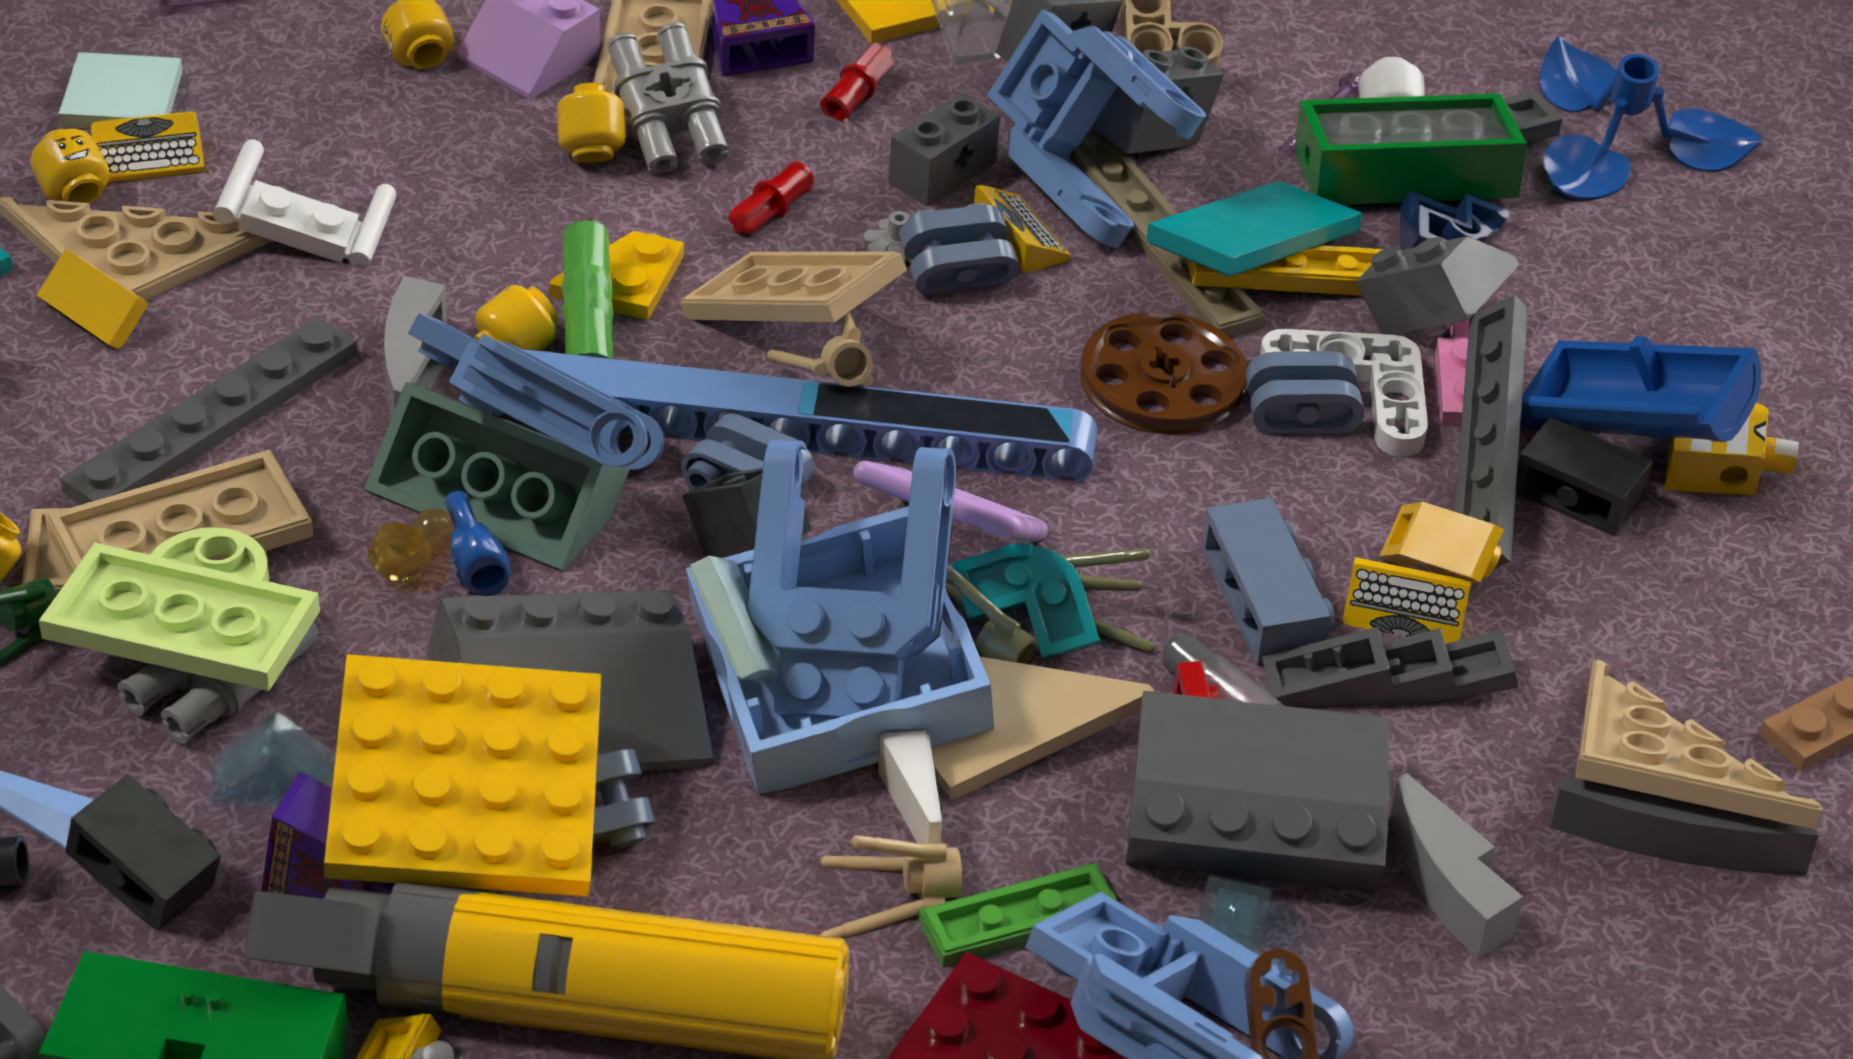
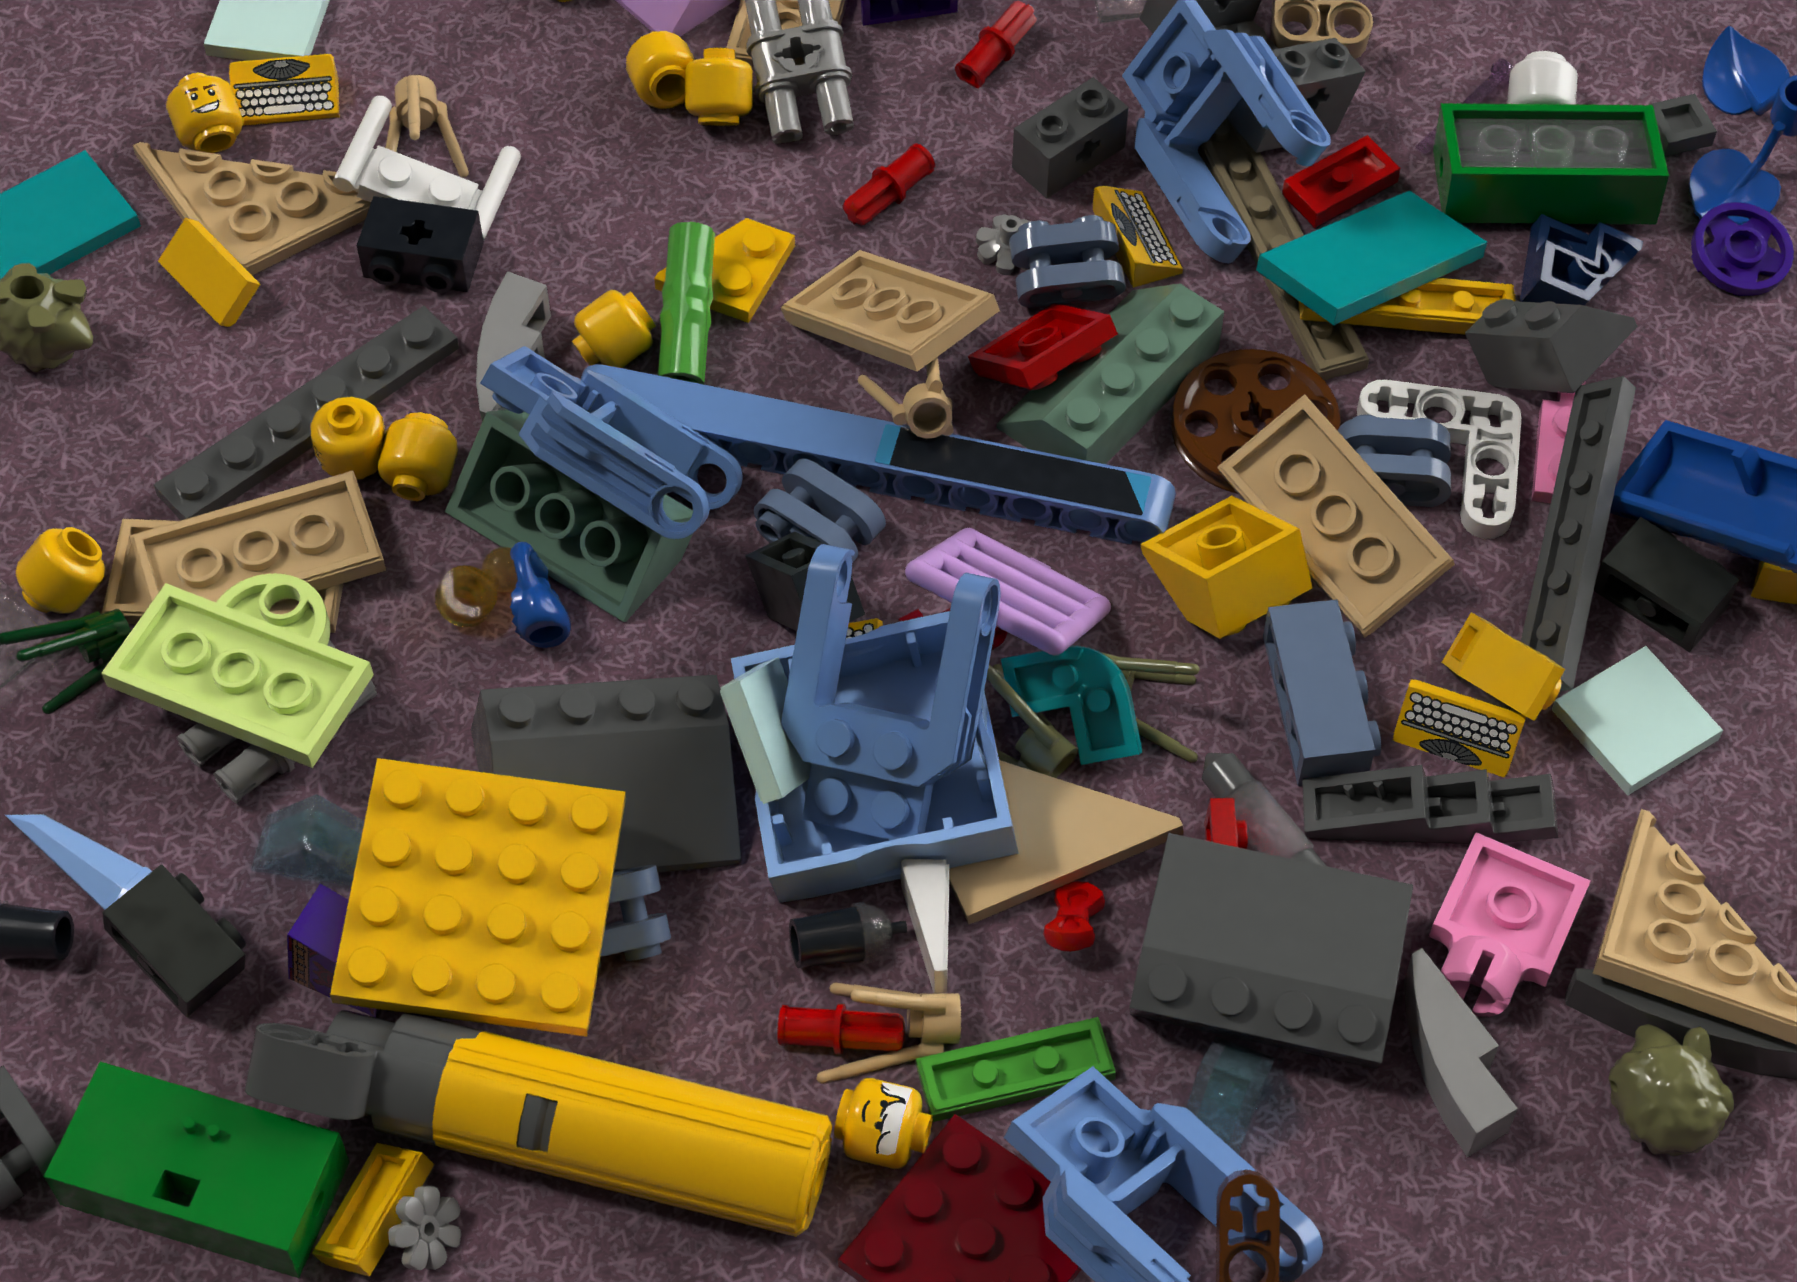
camera: 10 degrees right, 15 degrees up
(261, 420) = (348, 436): none -> yellow head
(287, 158) = (417, 110): none -> tan plant
(308, 265) = (420, 244): none -> black brick
(333, 434) = (417, 456): none -> yellow head
(528, 113) = (658, 68): none -> yellow head
(827, 811) = (842, 936): none -> black piece
(840, 888) = (840, 1028): none -> red axle
(896, 959) = (882, 1123): none -> yellow head
(947, 314) = (1043, 346): none -> red plate
(1029, 333) = (1110, 397): none -> sand green slope
(1058, 780) = (1075, 906): none -> red piece
(1161, 482) = (1229, 565): none -> yellow slope
(1212, 174) = (1341, 181): none -> red plate
(1257, 433) = (1352, 526): none -> tan tile
(1481, 754) = (1504, 921): none -> bright pink plate
(1575, 591) = (1636, 720): none -> light aqua tile
(1602, 216) = (1741, 249): none -> dark purple wheel
(1666, 878) = (1670, 1091): none -> olive animal

